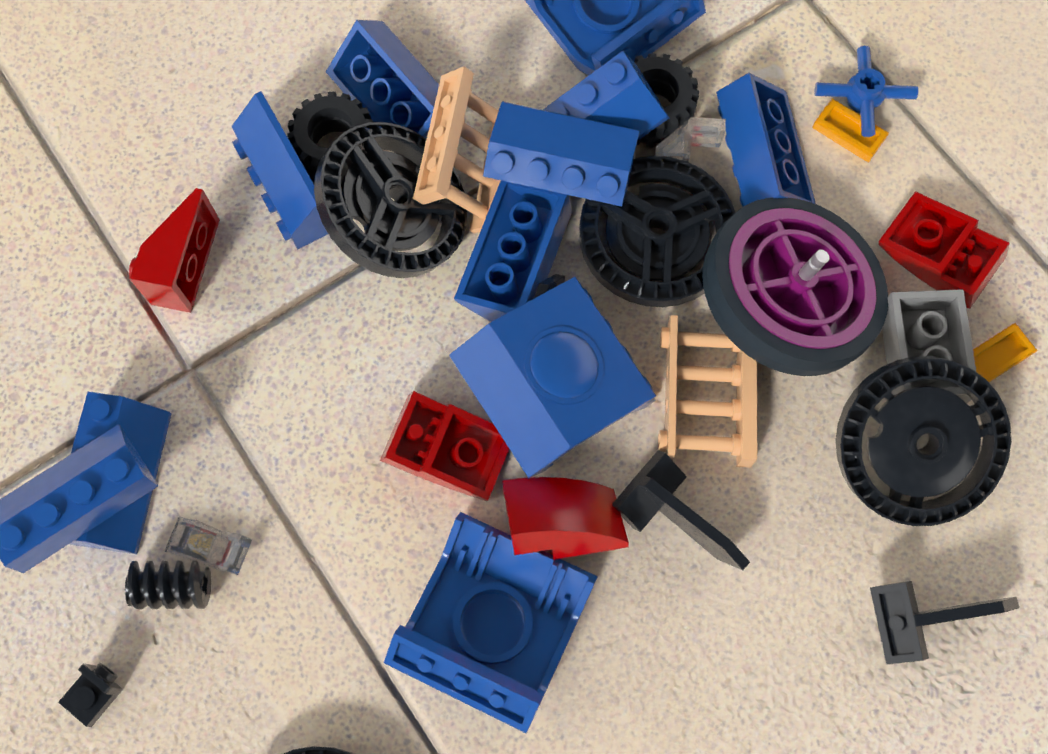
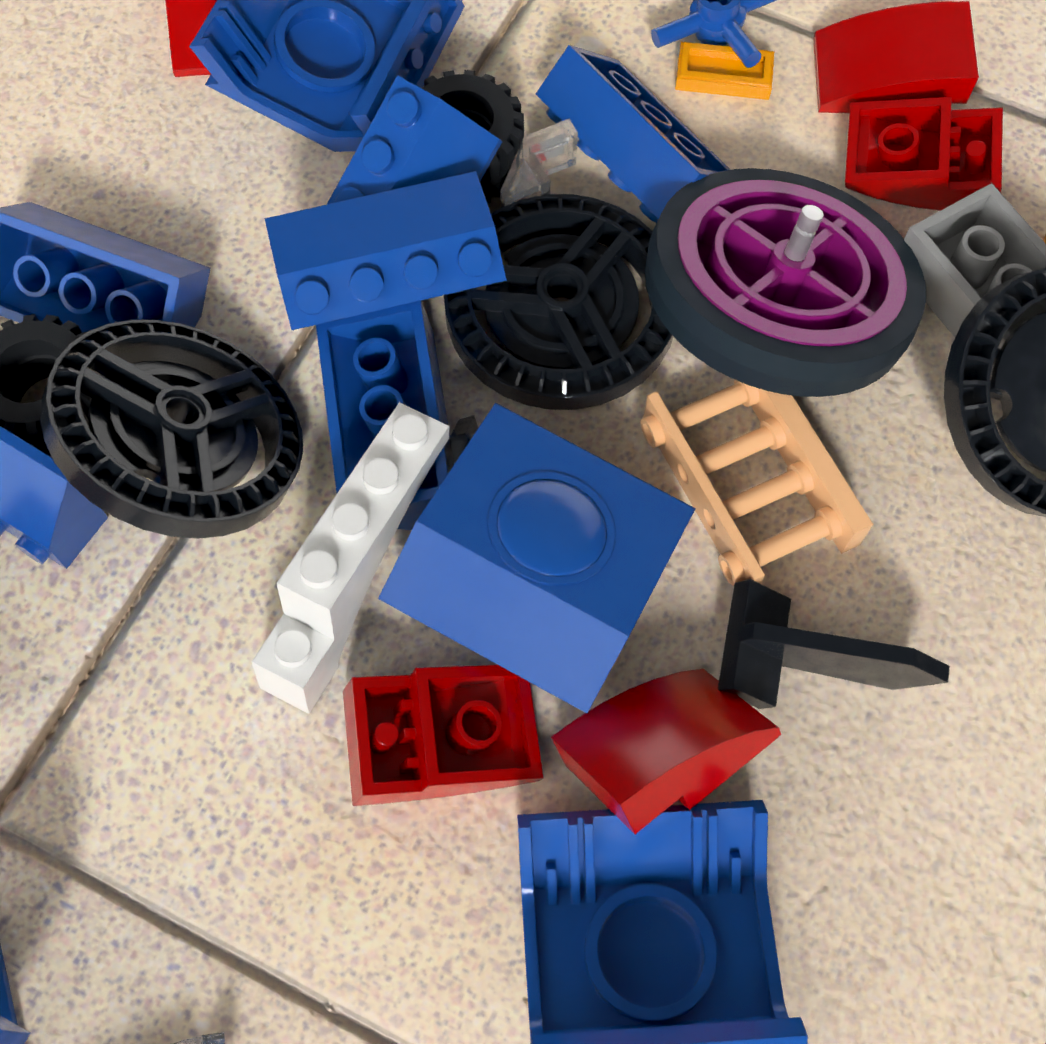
camera: 30 degrees left, 5 degrees down
(442, 143) = (211, 319): light nougat fence -> none
(444, 319) = (340, 557): none -> white arch
(965, 175) = (897, 56): none -> red slope

